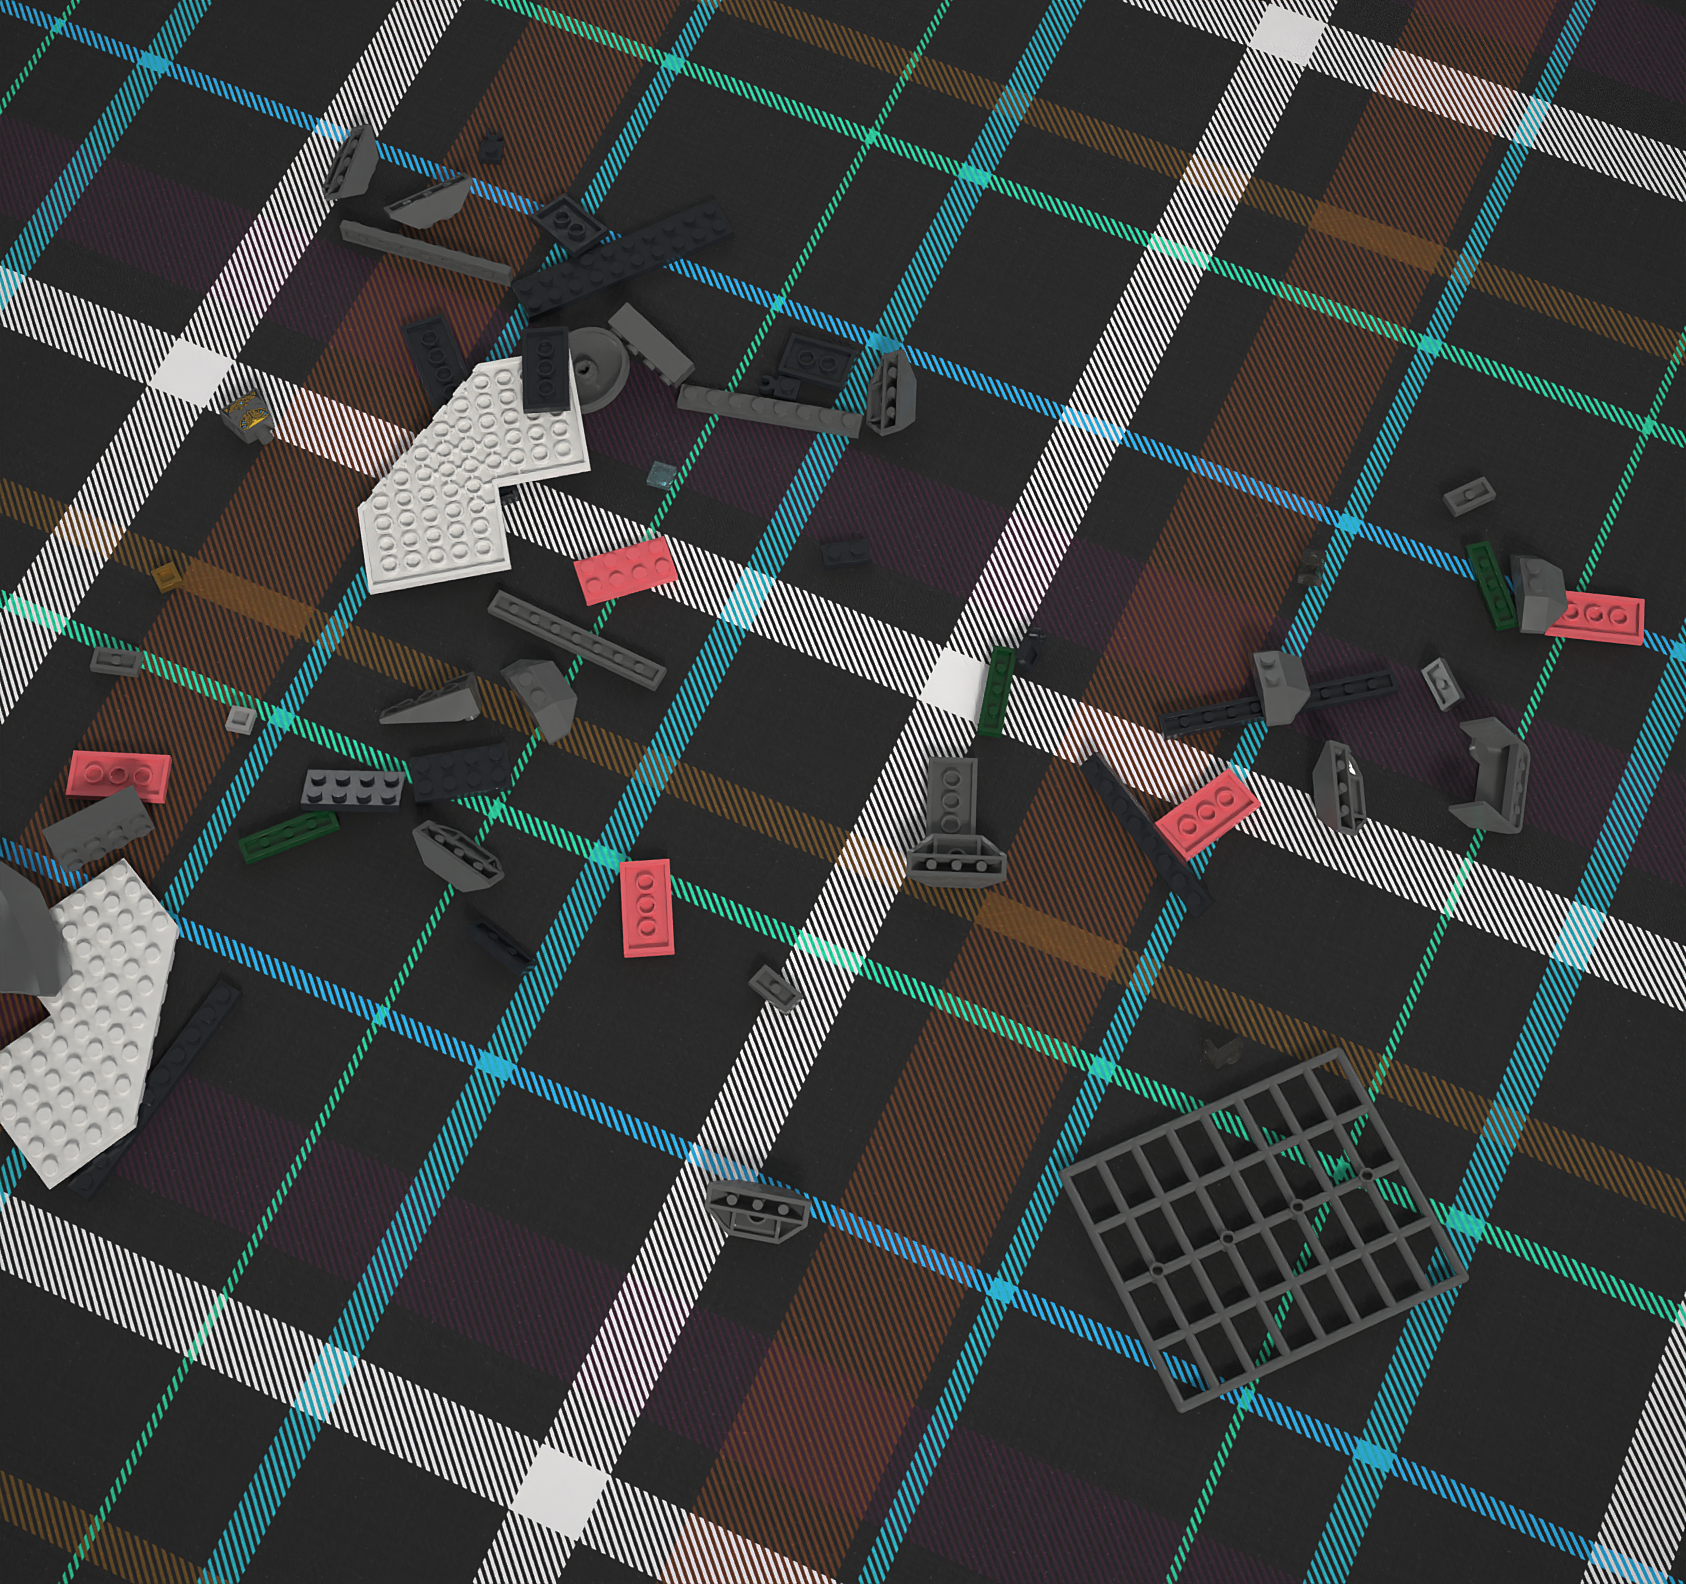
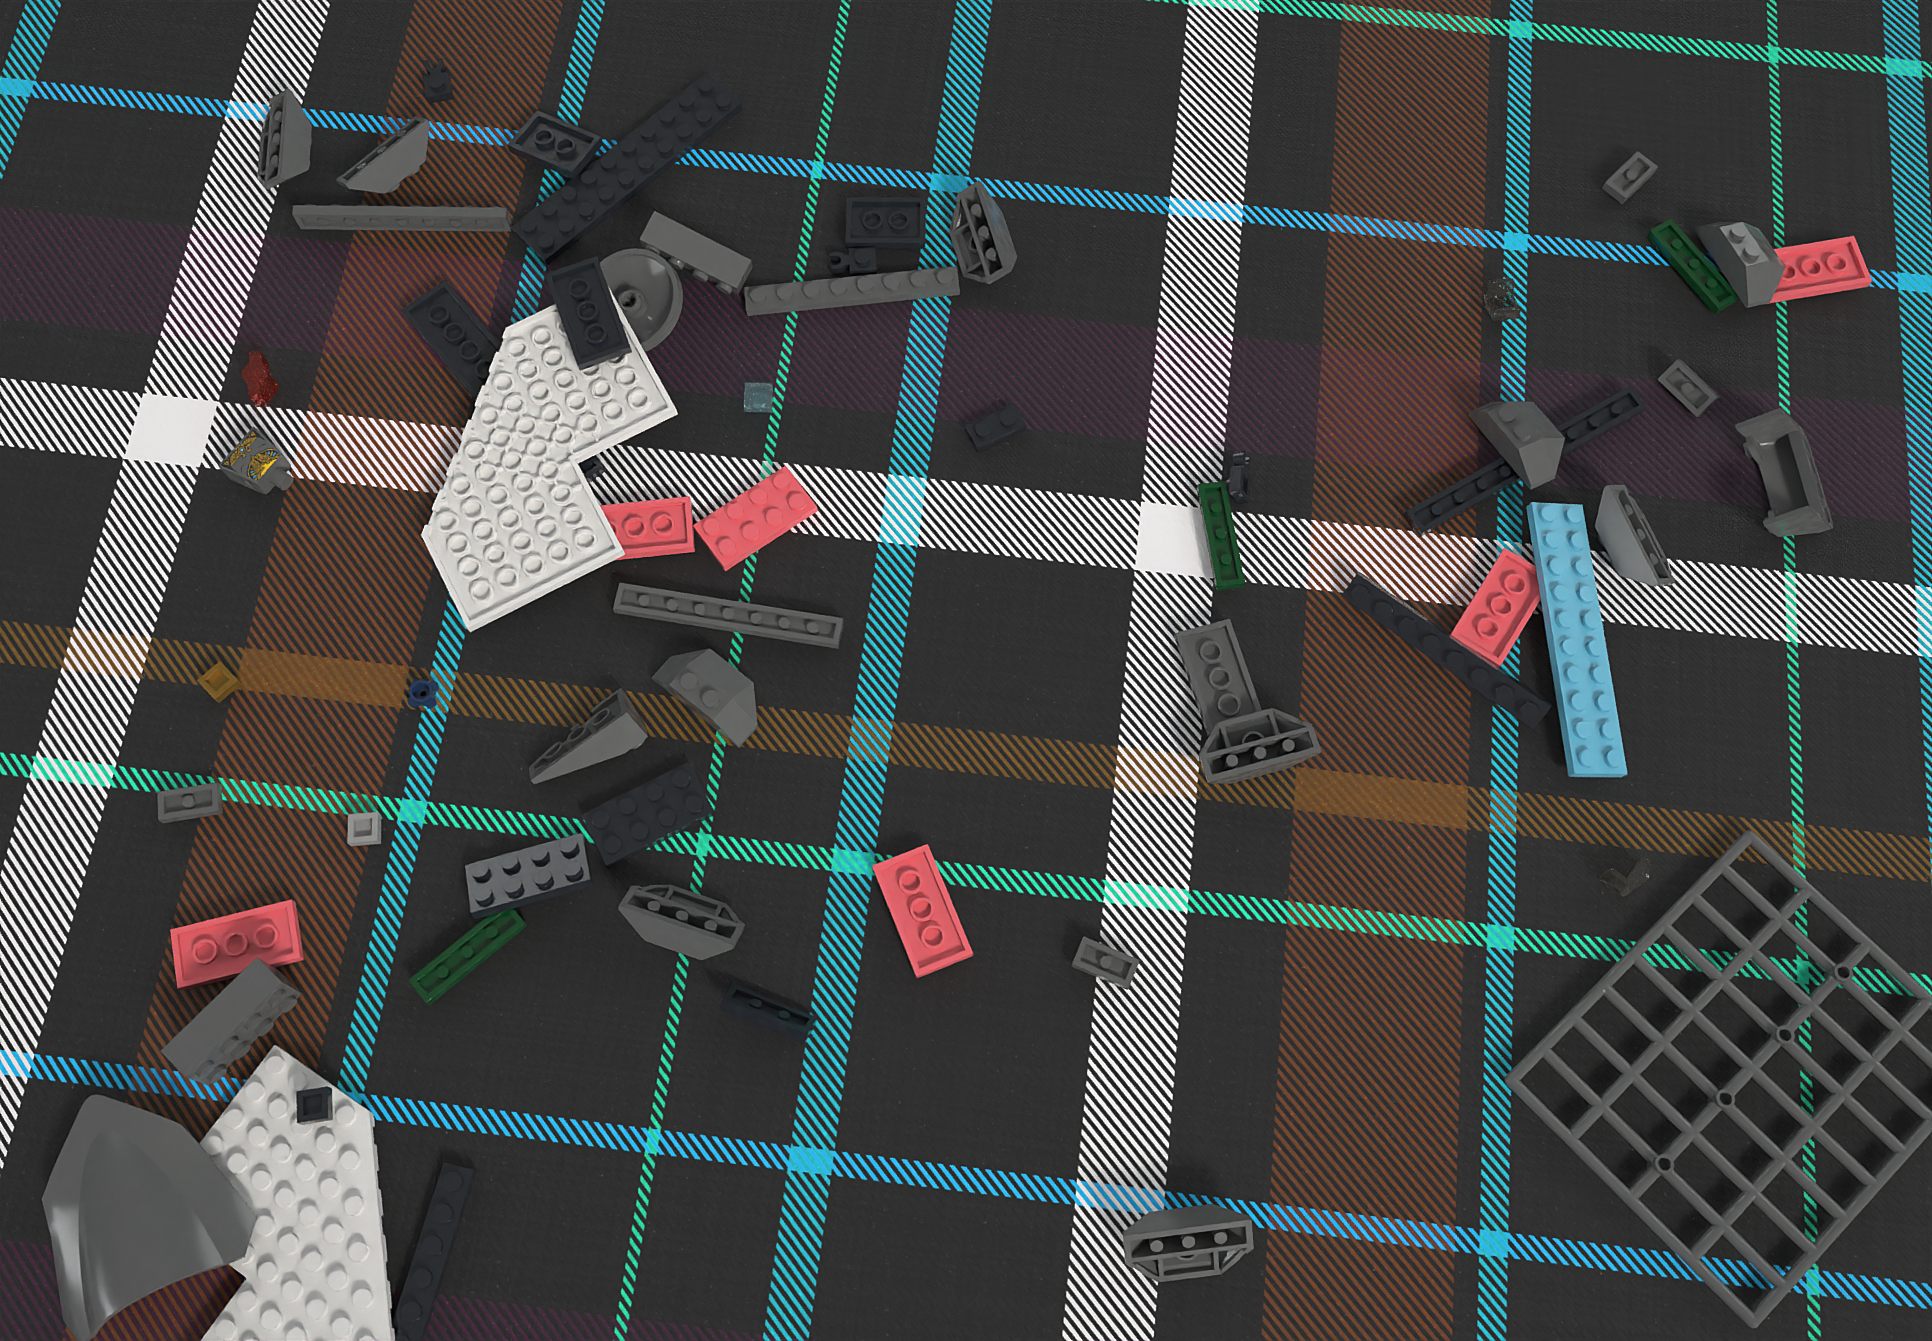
camera: 20 degrees left, 5 degrees up
(139, 906) = (314, 1105): none -> black plate
(272, 352) = (258, 377): none -> clear red piece
(319, 625) = (420, 686): none -> dark blue plate
(541, 554) = (652, 526): none -> coral plate
(1258, 857) = (1576, 641): none -> medium azure plate

